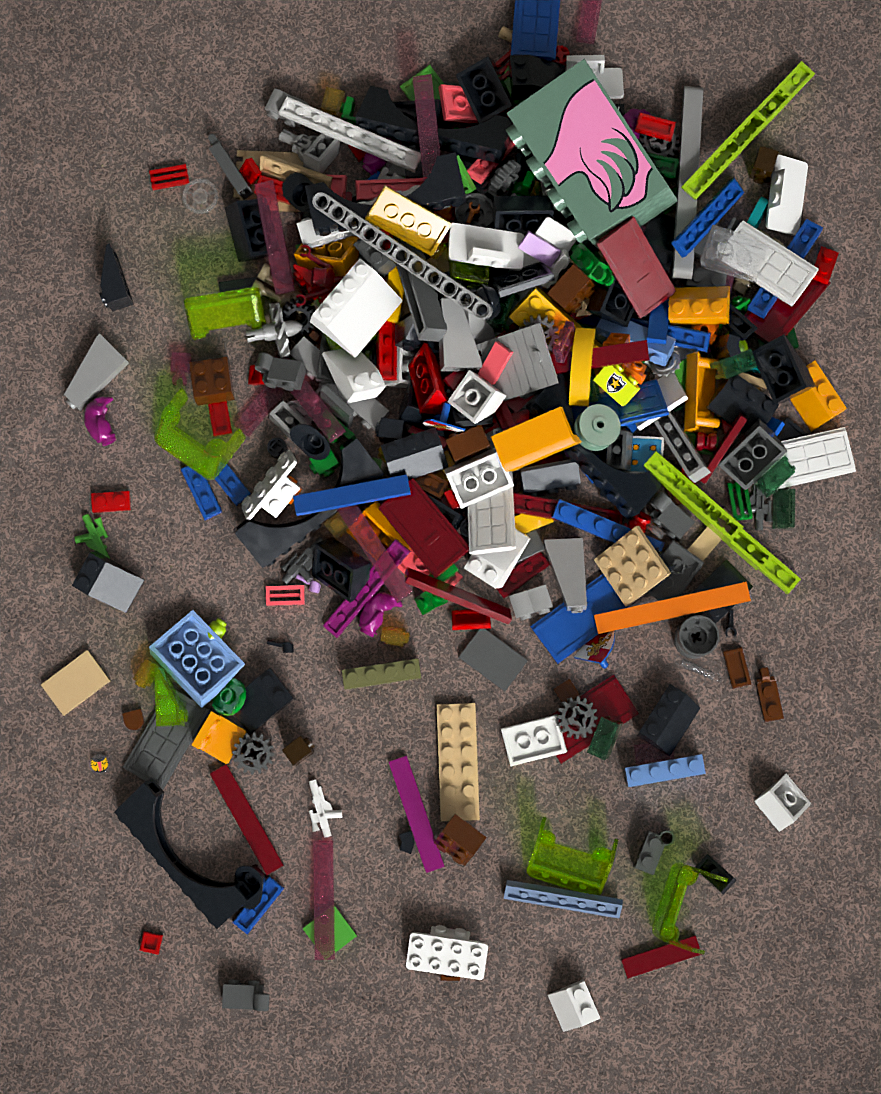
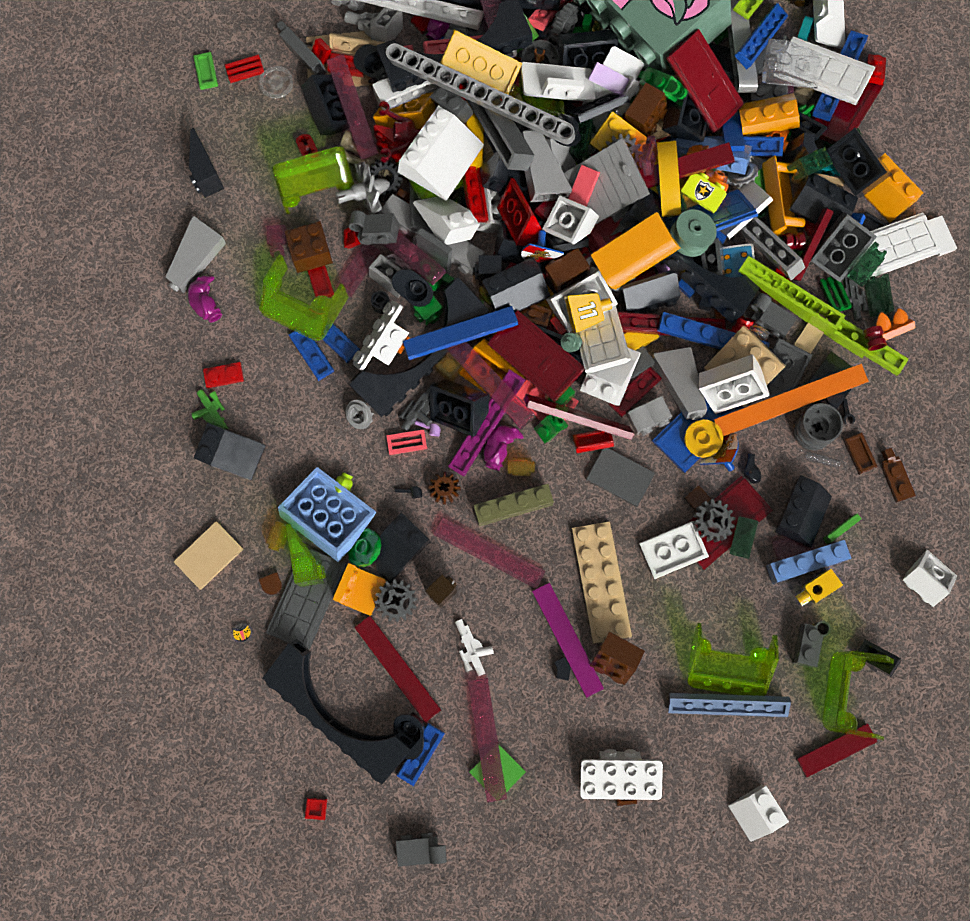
camera: 15 degrees left, 5 degrees down
(129, 173) = (205, 70): none -> bright green tile
(227, 273) = (305, 149): none -> red beam
(241, 569) = (352, 411): none -> light grey gear
(311, 653) = (442, 494): none -> reddish brown gear
(351, 718) = (489, 553): none -> clear pink tile
(460, 520) = (571, 342): none -> sand green wheel
(479, 490) = (585, 310): none -> yellow torso
(581, 633) = (704, 438): none -> yellow tile
(616, 584) = (733, 384): none -> white slope
(624, 671) = (751, 471): none -> black animal
(677, 793) = (827, 583): none -> yellow torso
(703, 741) = (843, 527): none -> bright green tile
(768, 554) = (874, 338): none -> dark red wheel
(785, 545) = (899, 324): none -> orange tile
(860, 452) = (942, 235): none -> white tile

